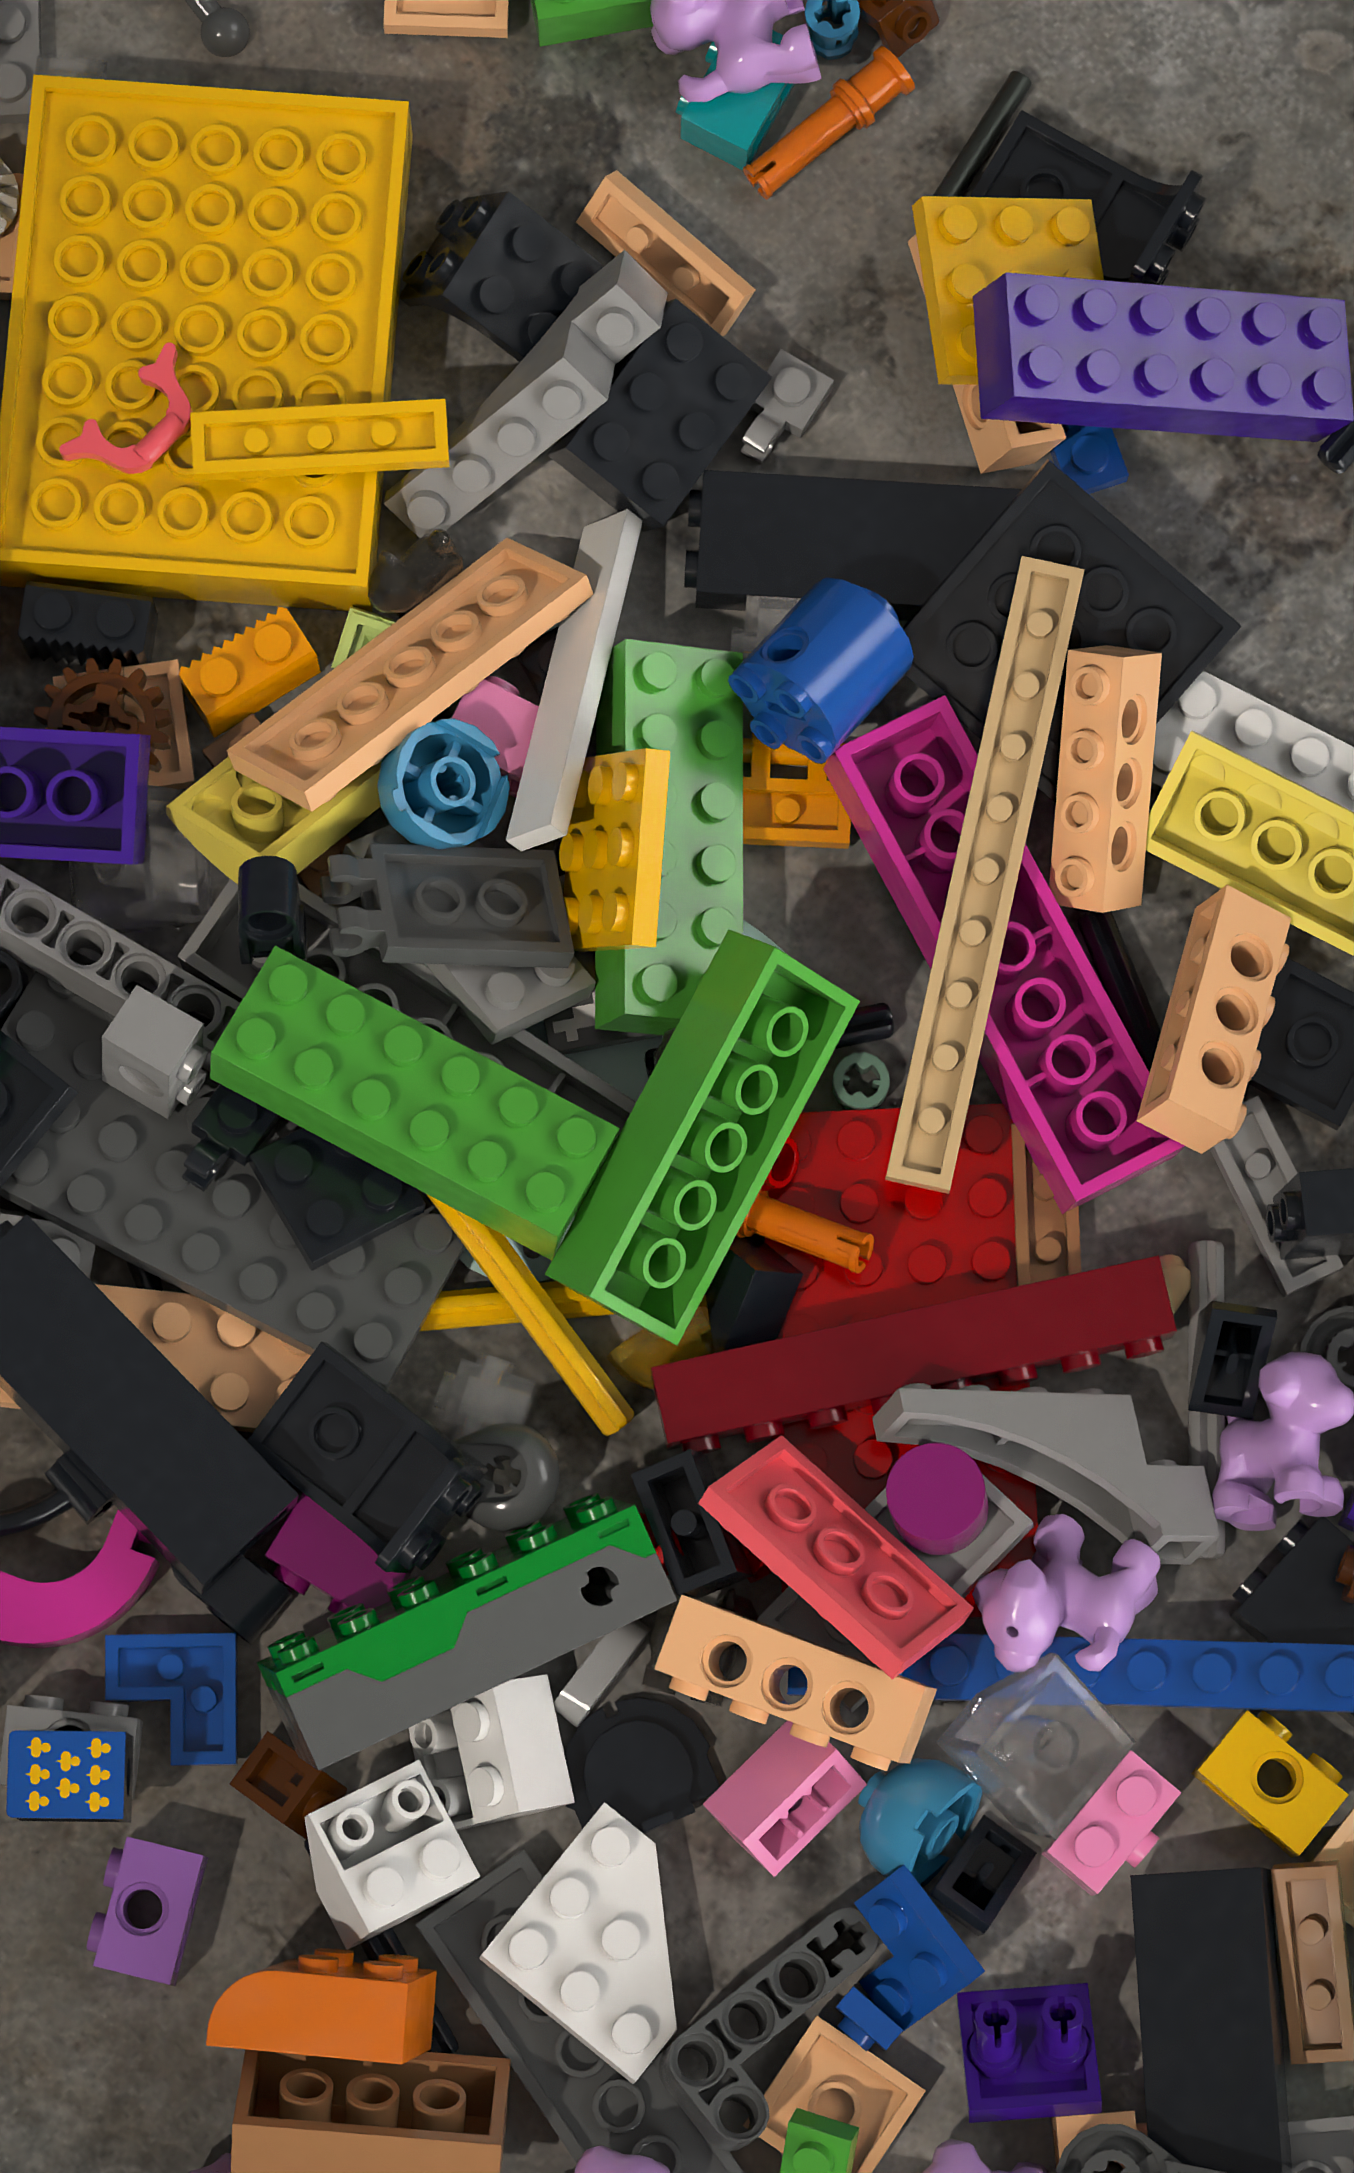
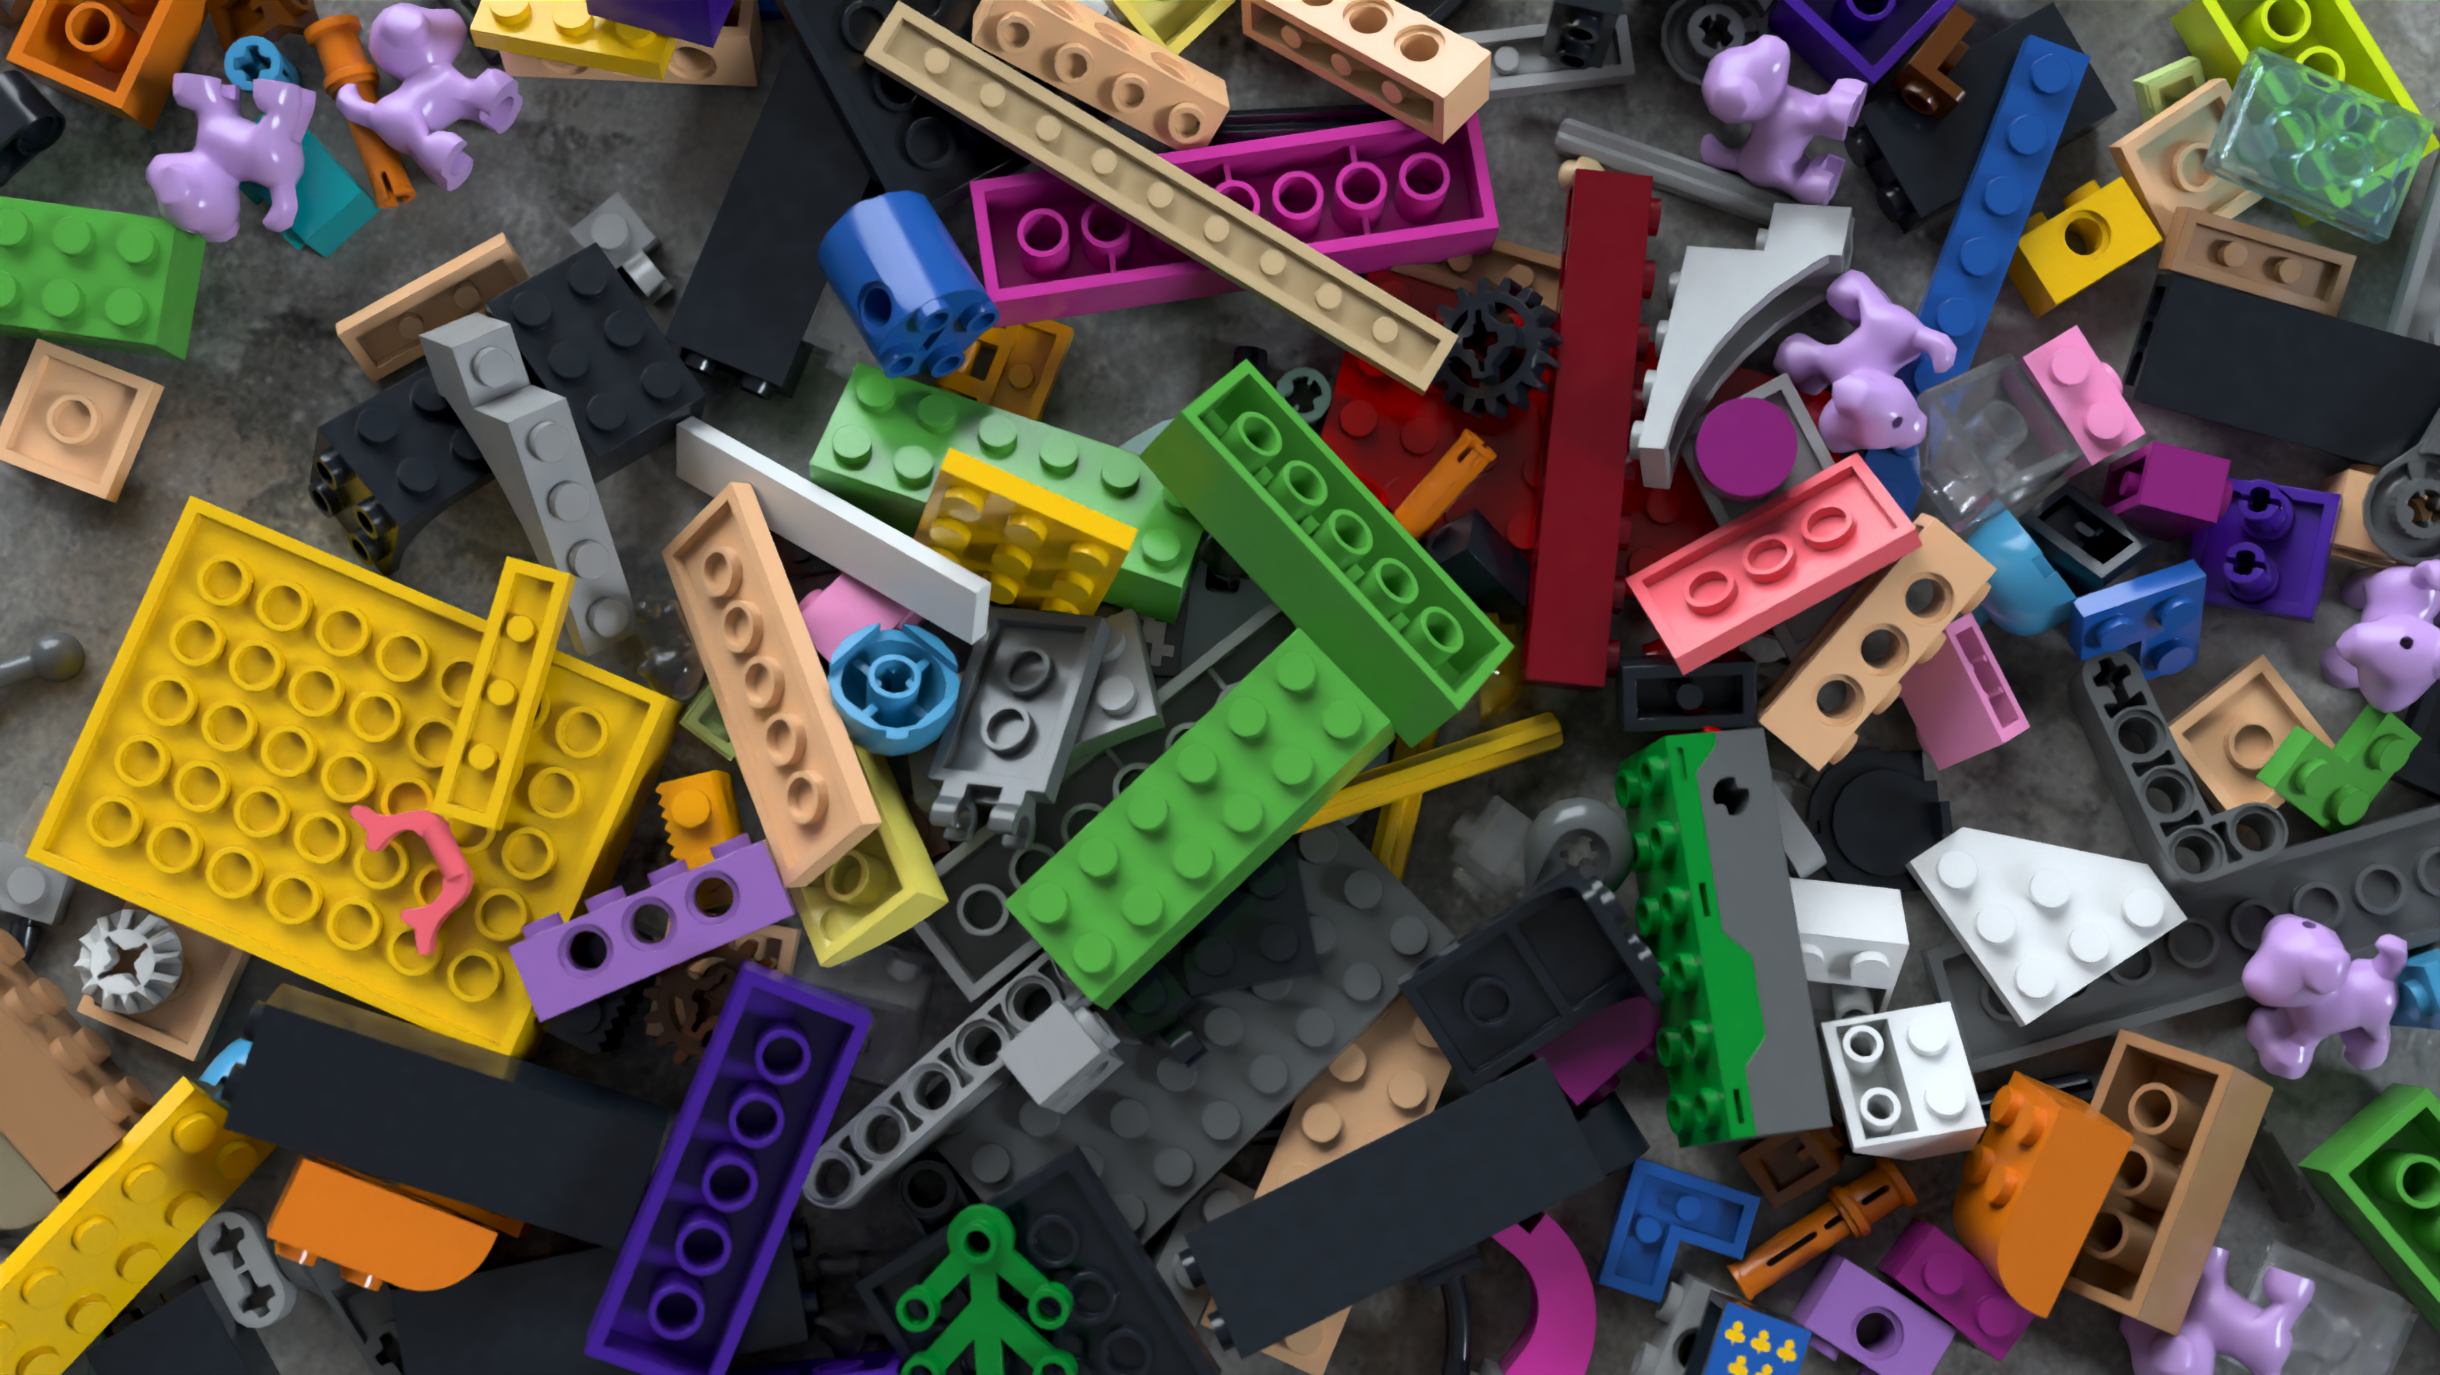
camera: 70 degrees left, 5 degrees up
(74, 581) = (561, 983): none -> medium lavender brick
(212, 1959) = (1955, 1288): none -> magenta brick
(248, 1854) = (1855, 1219): none -> orange pin
(270, 909) = (963, 897): black piece -> none
(866, 2022) = (2188, 687): blue plate -> none
(899, 154) = (419, 50): none -> lavender animal
(960, 1237) = (1495, 350): none -> black gear
(1048, 1935) = (2168, 490): none -> magenta brick
(1228, 1357) = (1685, 142): black slope -> none

